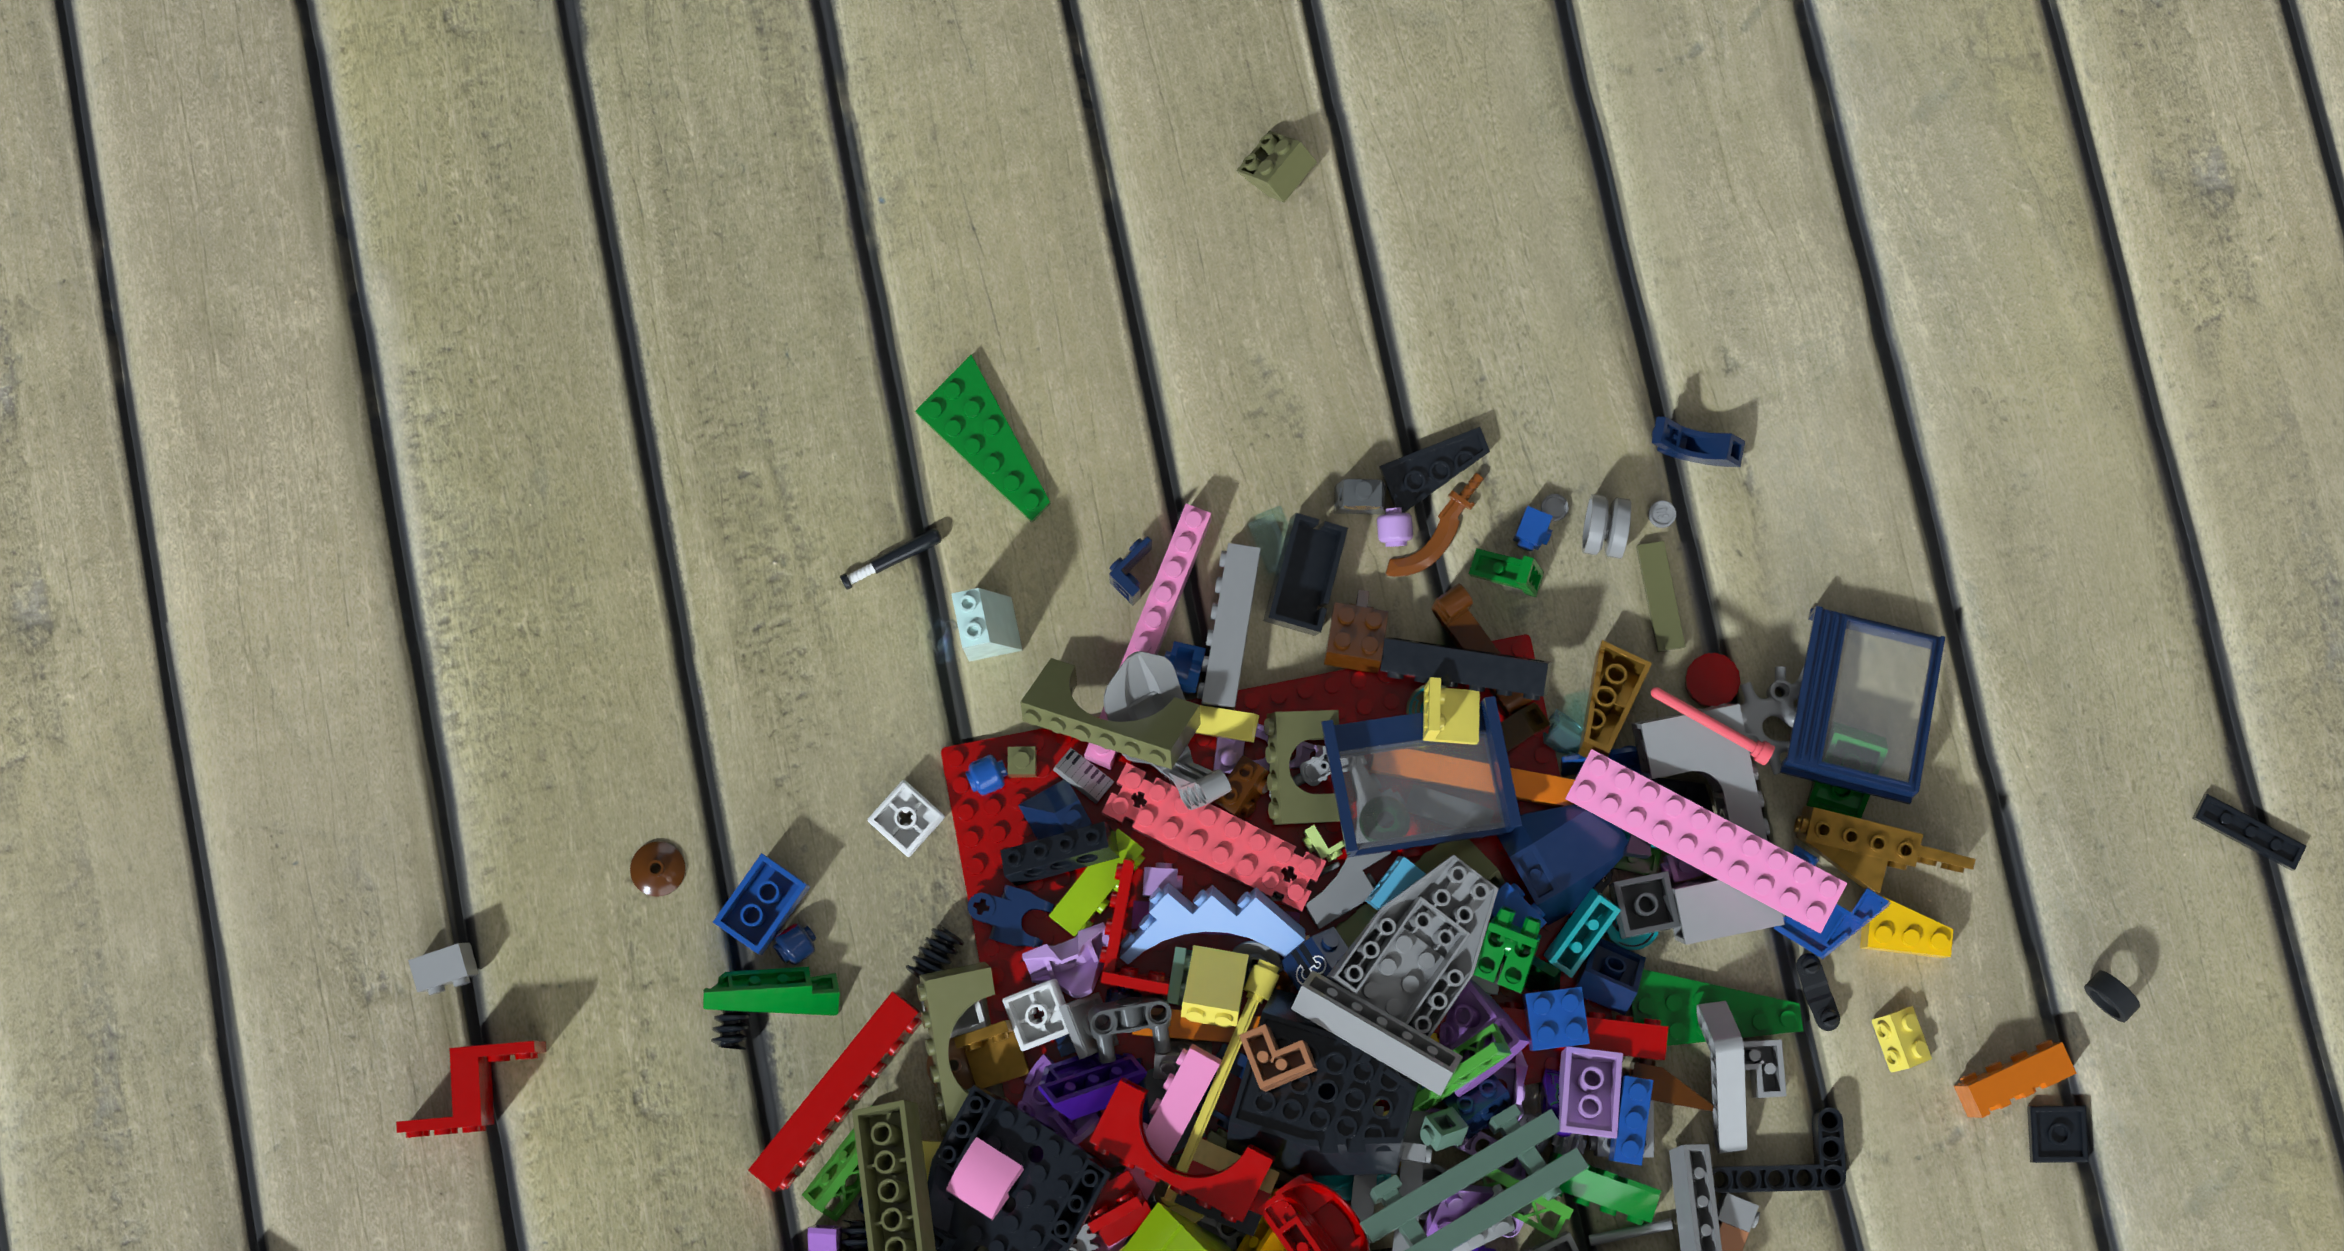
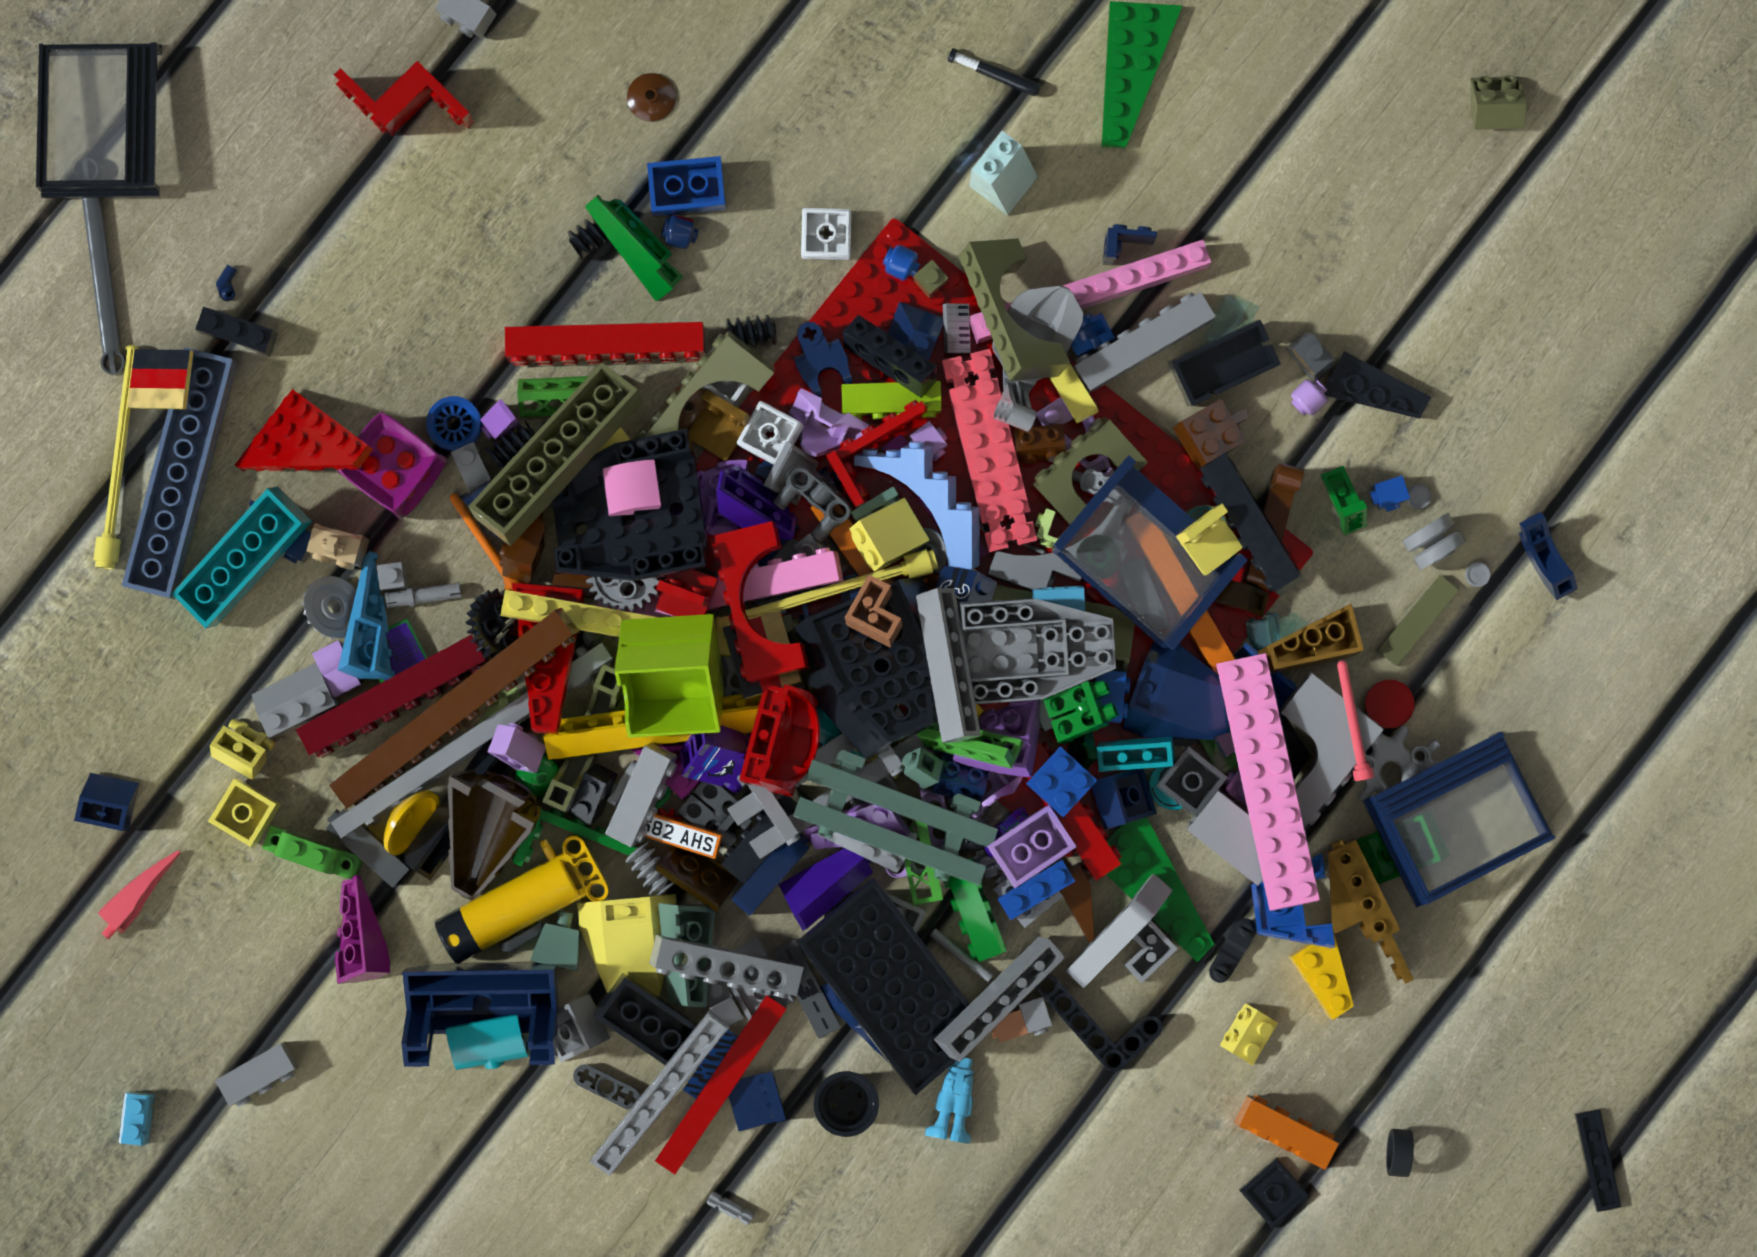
camera: 50 degrees right, 5 degrees up
(1442, 536) = (1333, 435): dark orange sword -> none

